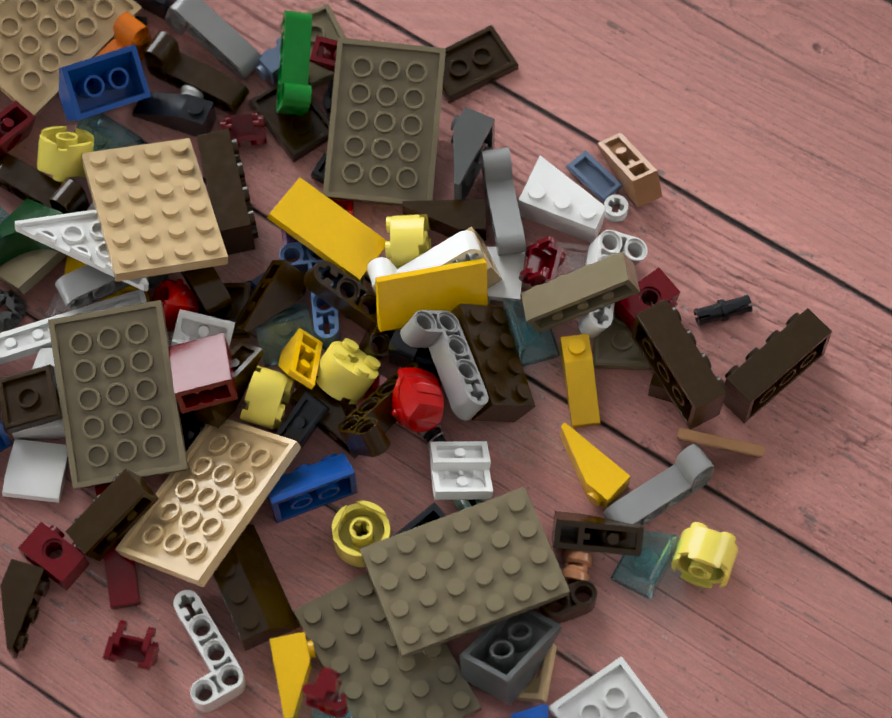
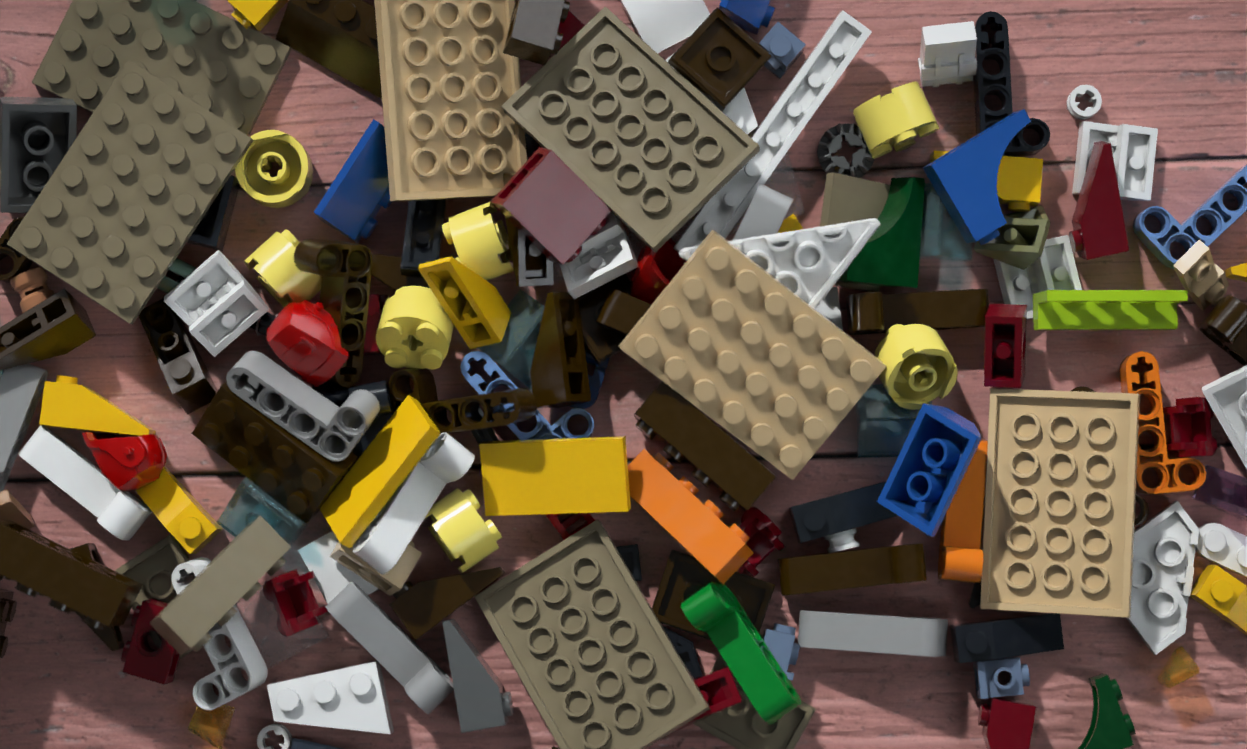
camera: 145 degrees right, 20 degrees up
(268, 155) = (685, 517): none -> orange brick
(402, 465) = (279, 272): none -> light yellow brick
(511, 458) = (177, 357): none -> dark brown slope
(588, 416) = (128, 460): none -> red helmet
(615, 395) = (83, 481): none -> white beam
(652, 240) = (212, 724): none -> clear yellow slope
(723, 310) = (75, 696): black pin -> none

